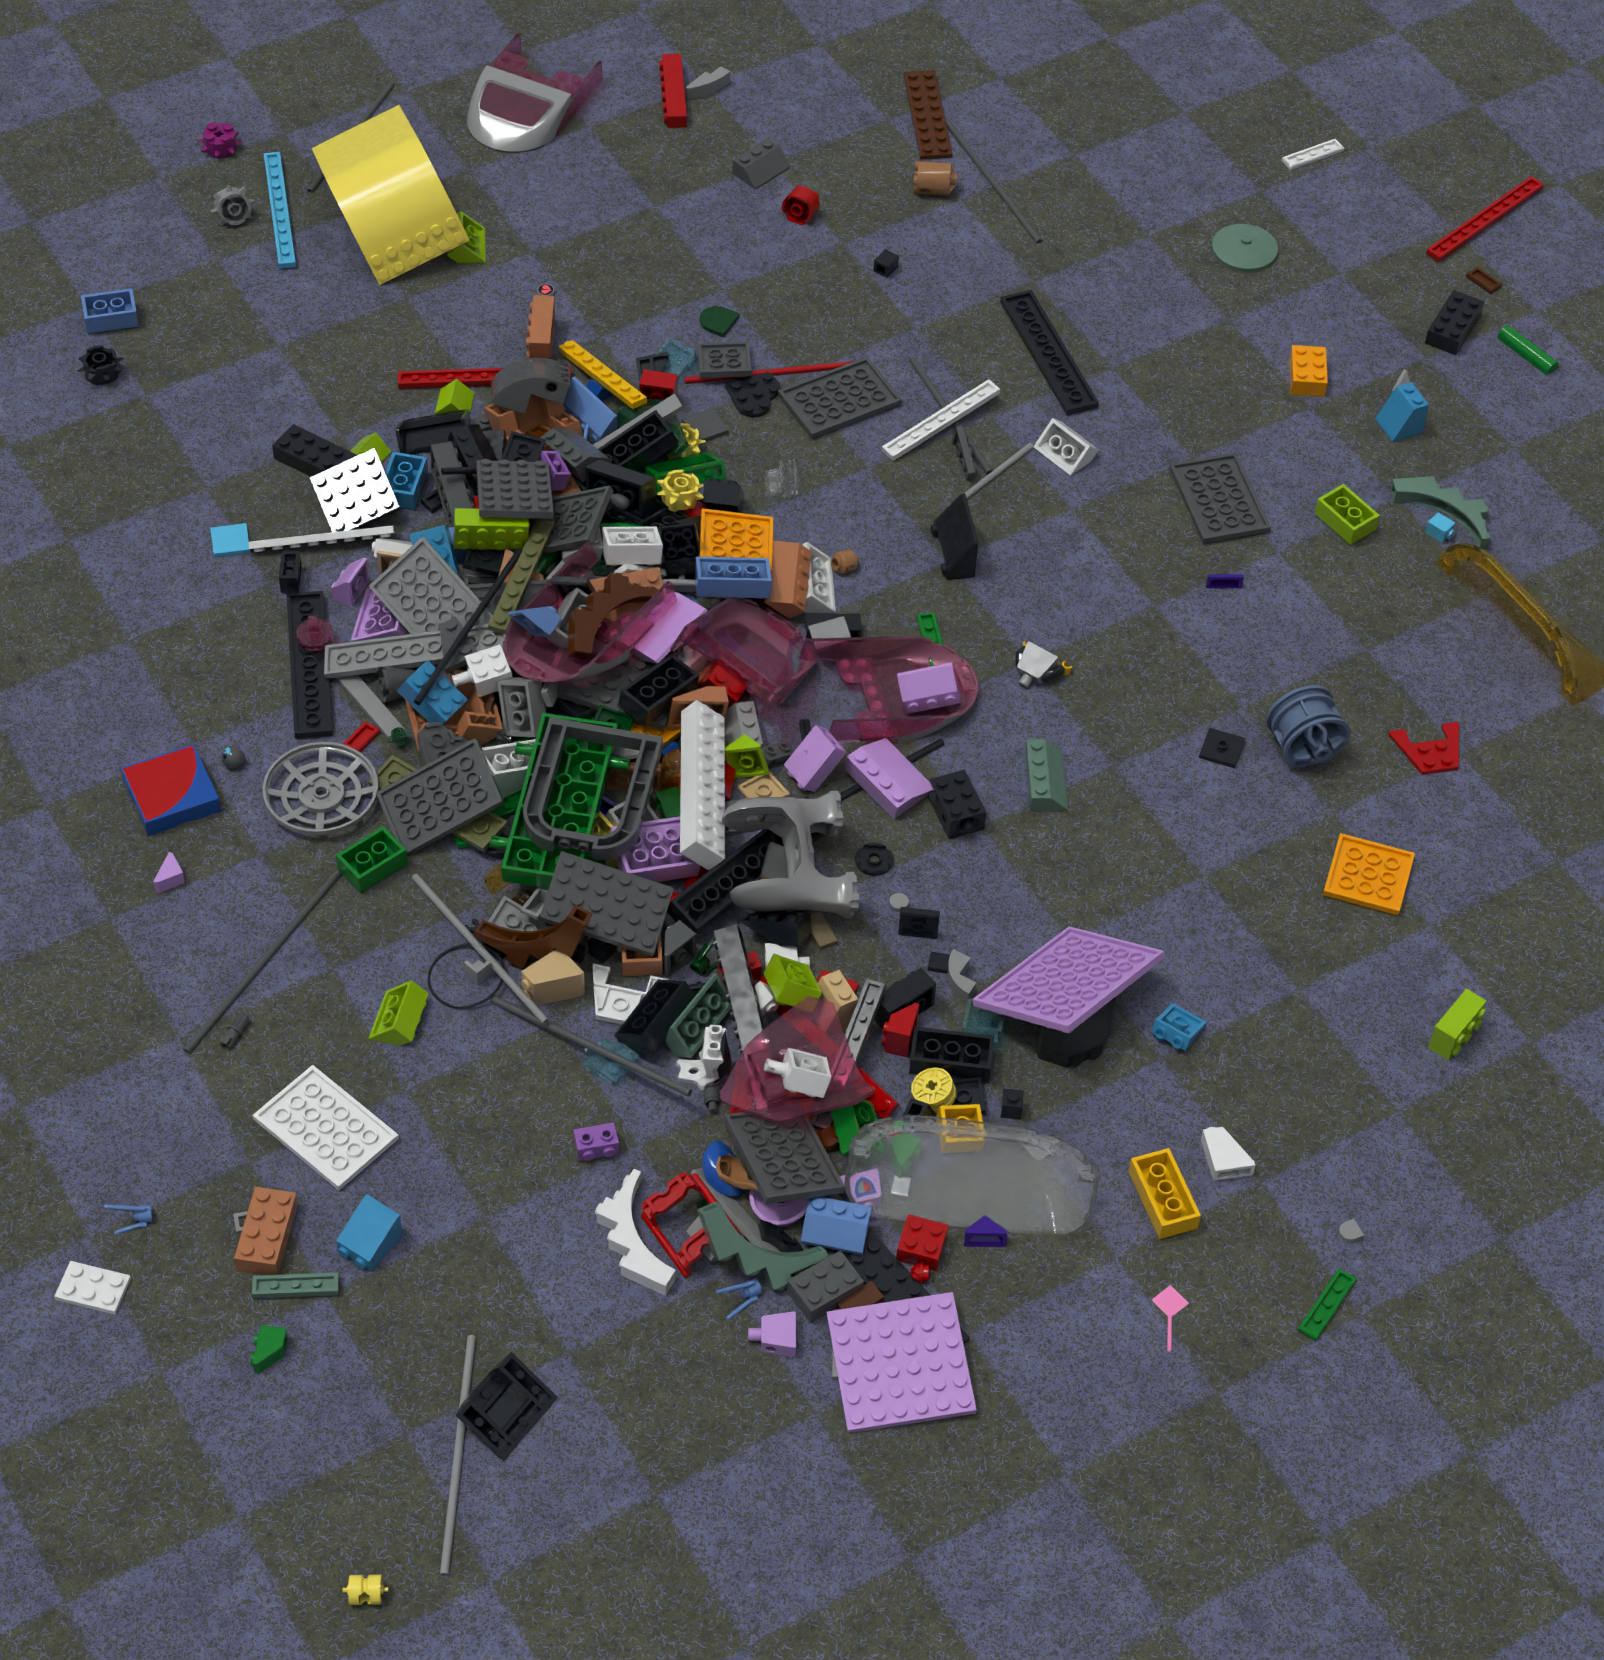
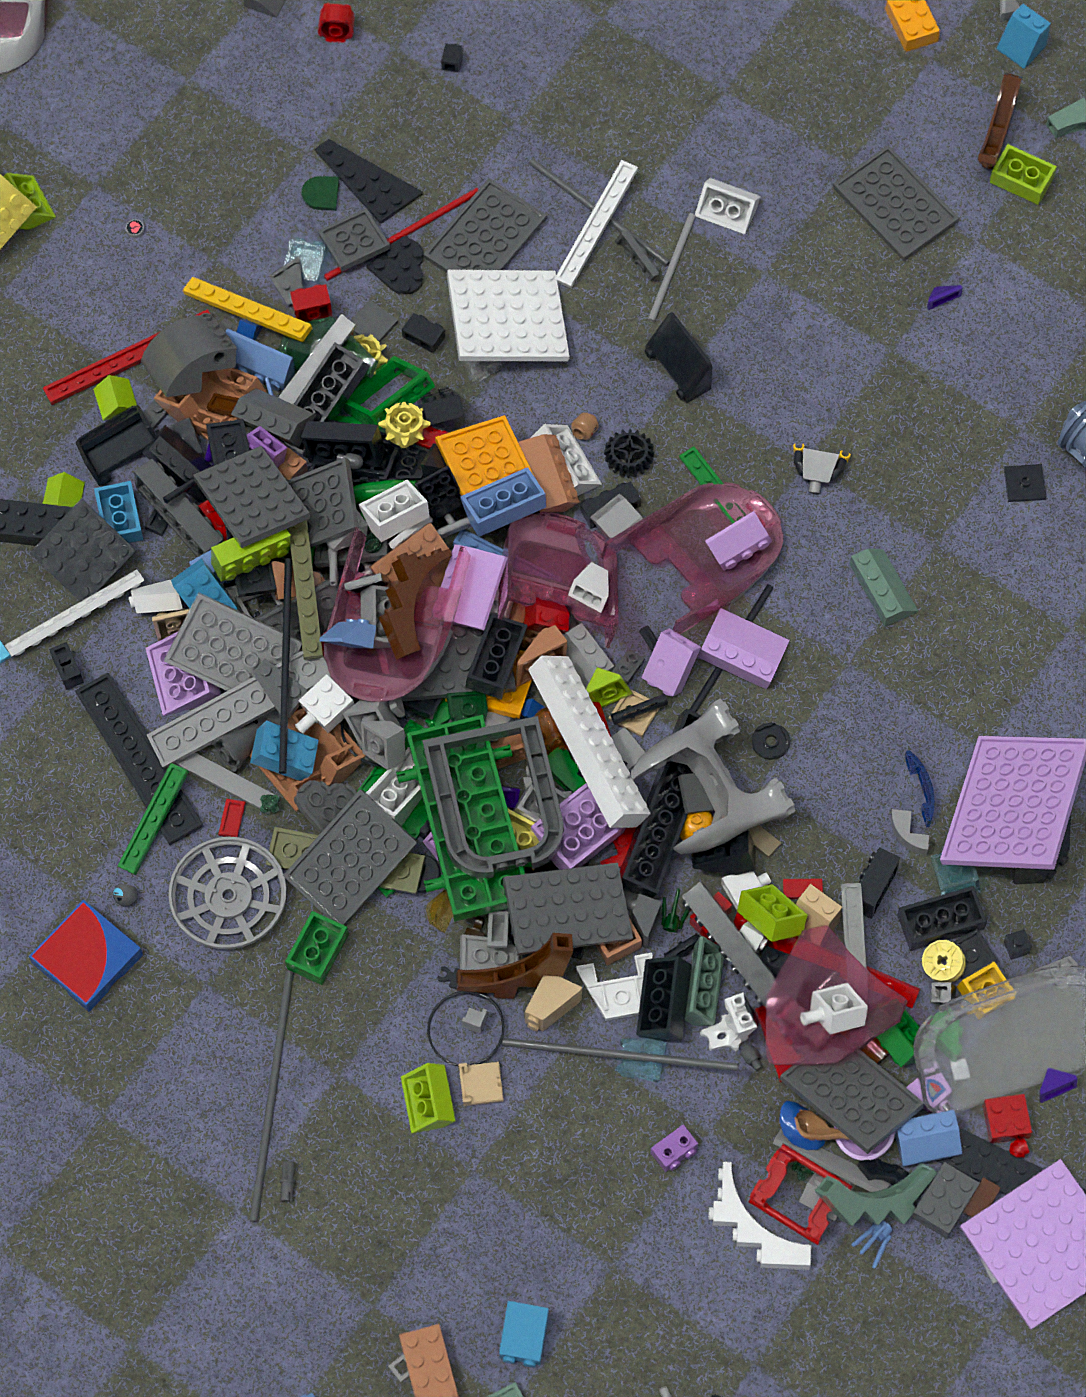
camera: 20 degrees left, 15 degrees up
(169, 875) = (136, 1046): lavender slope -> none
(292, 709) = (153, 818): none -> green tile
(314, 633) = (128, 725): clear pink tile -> none
(325, 1127) = (423, 1242): white plate -> none
(351, 582) = (130, 652): lavender slope -> none
(452, 1022) = (480, 1083): none -> tan piece
(480, 949) = (465, 997): light grey piece -> none
(521, 718) = (383, 742): none -> light grey slope
(542, 327) = (160, 282): nougat brick -> none
(744, 446) = (423, 332): none -> black brick
(764, 330) = (373, 186): none -> black wing
(767, 787) = (618, 717): none -> black pin
(774, 672) = (591, 587): none -> white slope
(776, 1334) = (926, 1265): lavender torso -> none
(822, 454) = (507, 315): none -> white plate
(872, 595) = (612, 452): none -> black gear
(897, 901) = (815, 777): light grey tile -> none
(899, 1031) = (888, 916): red slope -> none
(919, 922) = (848, 795): black plate -> none
(938, 962) = (881, 824): black tile -> none
(957, 804) = (820, 652): black torso -> none
(990, 963) = (916, 767): none -> clear blue slope
(1049, 352) = (658, 98): black plate -> none
(1351, 463) = (1000, 120): none -> reddish brown arch

